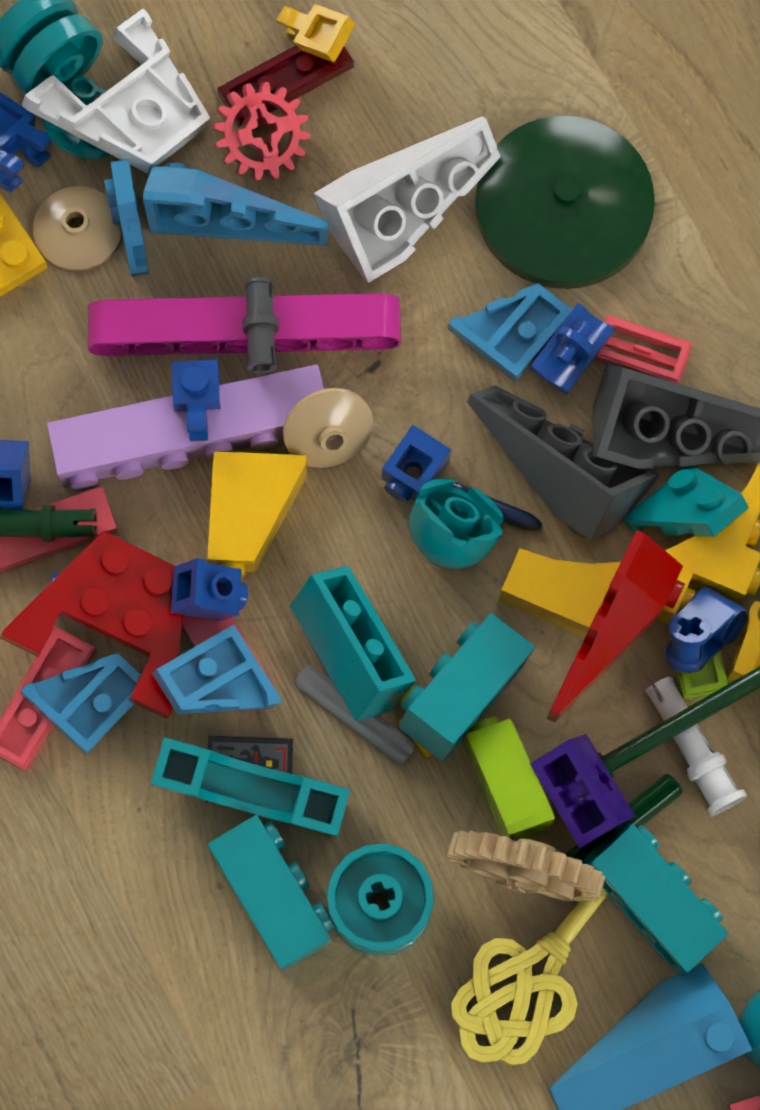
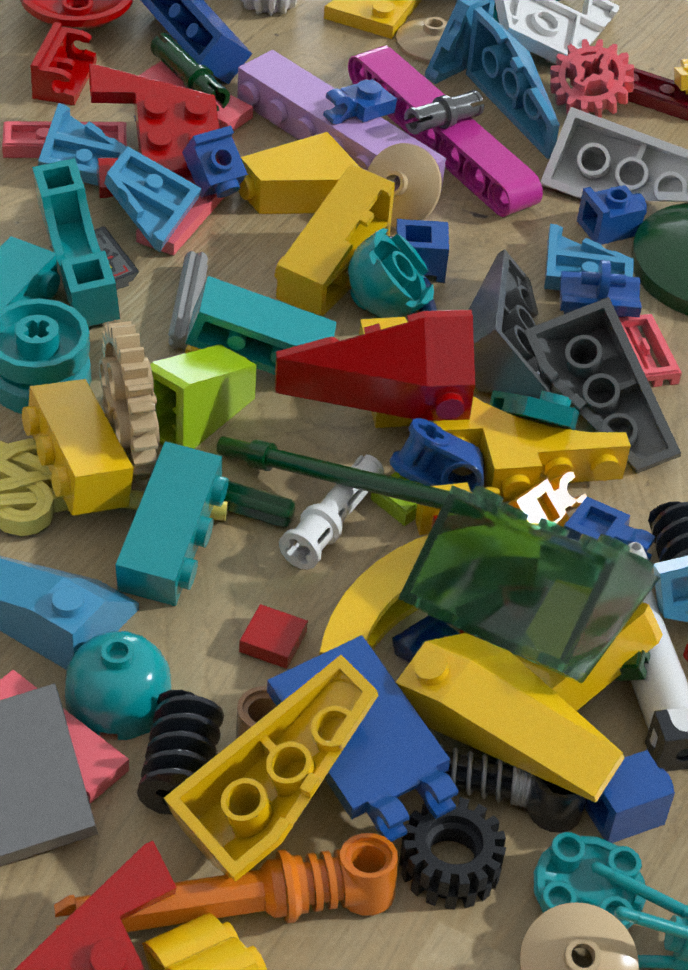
camera: 55 degrees right, 30 degrees down
(352, 643) = (243, 248): teal brick -> none
(378, 545) = (317, 264): none -> yellow wedge
(455, 265) = (611, 213): none -> blue brick
(530, 931) = (78, 447): none -> yellow brick
(582, 790) = (229, 416): dark purple brick -> none

